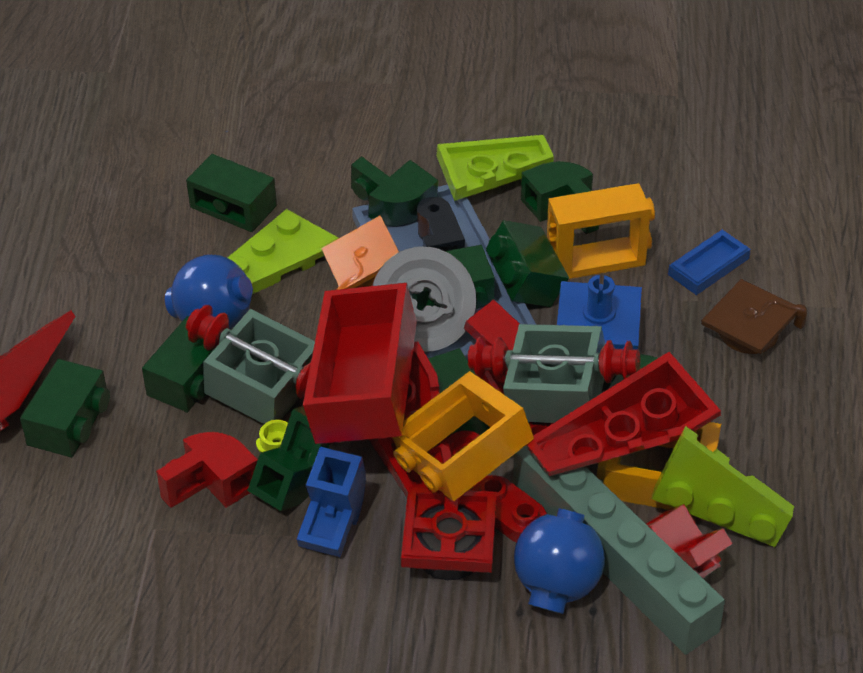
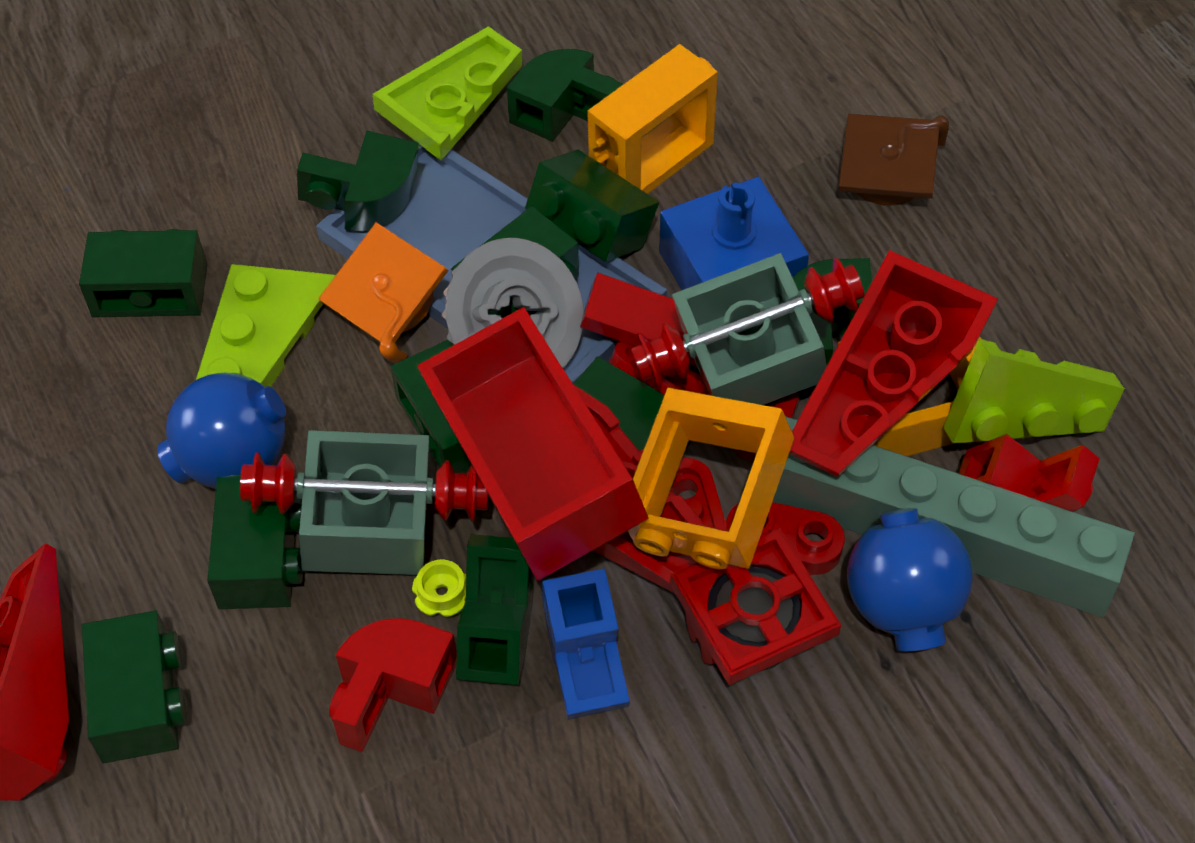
camera: 30 degrees left, 10 degrees up
(439, 225) = (456, 208): black leg -> none
(709, 262) = (786, 107): blue tile -> none

